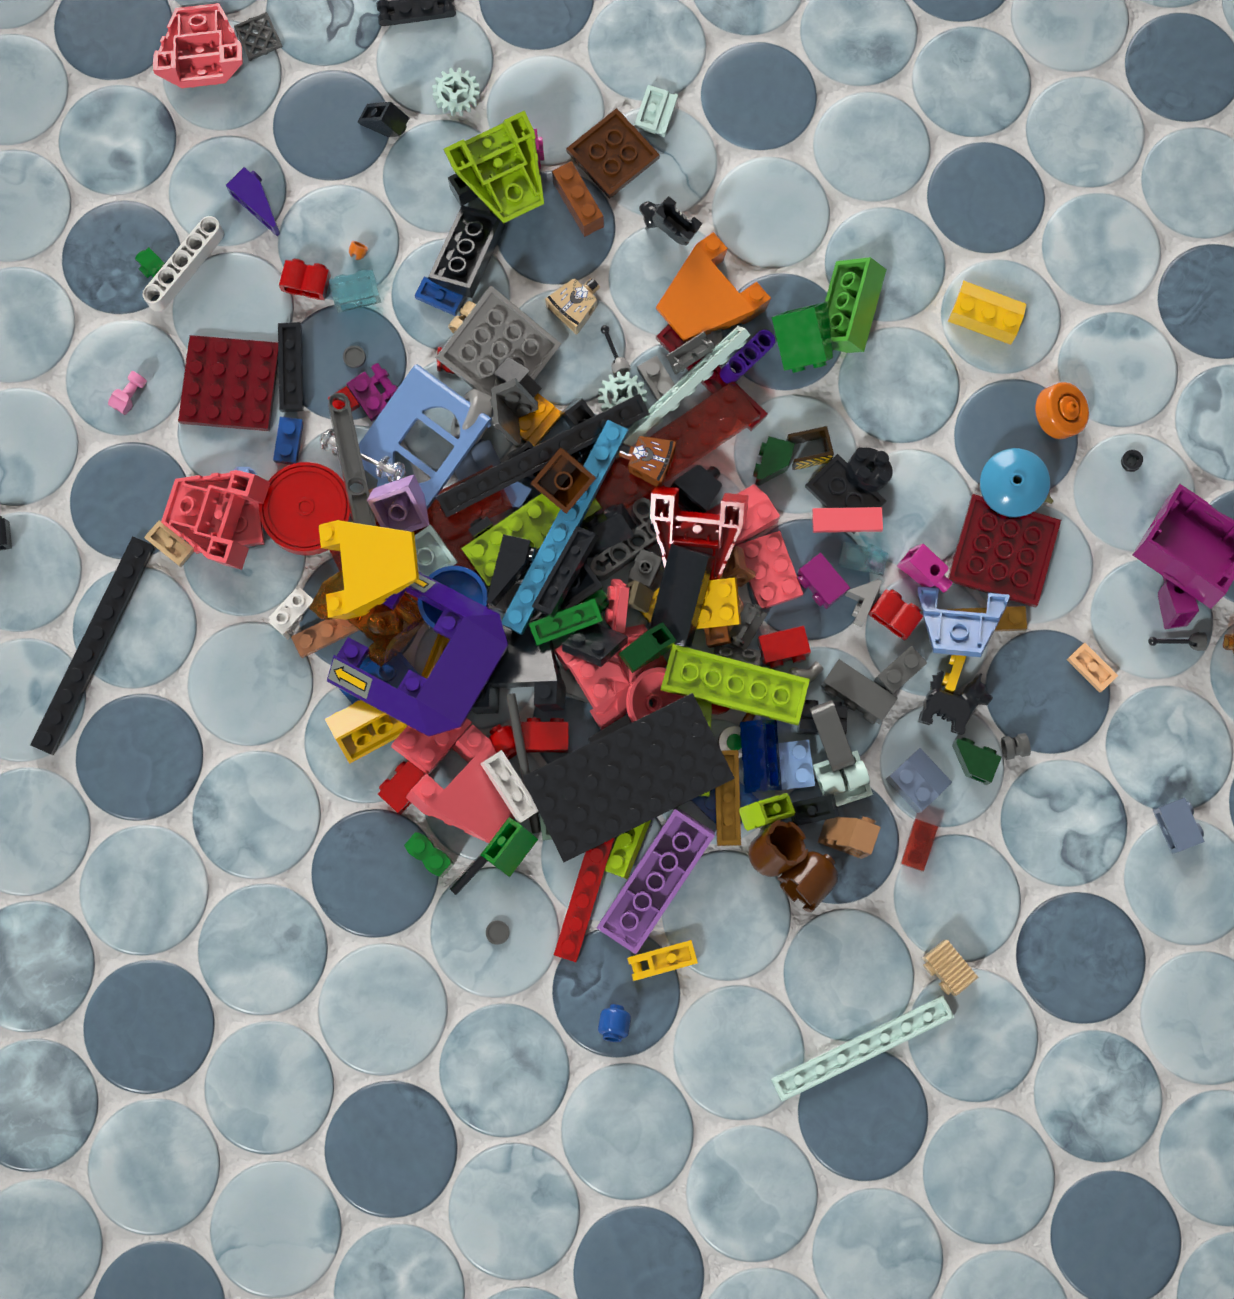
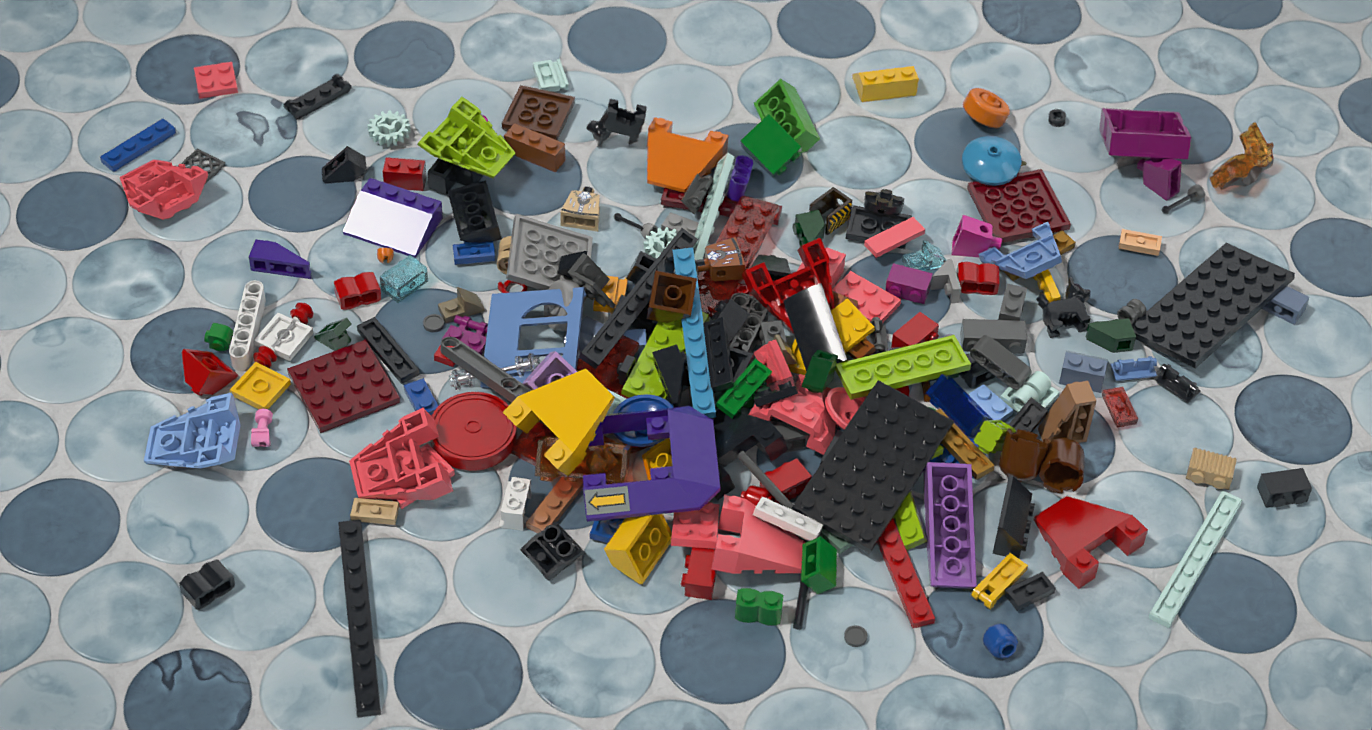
camera: 35 degrees left, 30 degrees down
(64, 371) = (197, 438): none -> light blue wedge
(116, 296) = (205, 372): none -> red slope
(154, 342) = (260, 386): none -> yellow plate
(208, 295) = (284, 335): none -> white plate
(253, 321) = (335, 334): none -> dark green slope
(294, 682) = (552, 550): none -> black slope
(390, 210) = (393, 217): none -> slope
(390, 353) = (464, 305): none -> dark tan slope
(431, 160) = (405, 173): none -> red brick
(681, 988) = (1029, 591): none -> black plate
(719, 910) = (1013, 519): none -> black slope
(776, 950) = (1079, 527): none -> red wedge
(967, 810) = (1133, 369): none -> medium blue hinge
(996, 853) = (1176, 384): none -> black hinge
(1003, 1032) = (1284, 487): none -> black brick
(1101, 786) = (1211, 304): none -> black plate

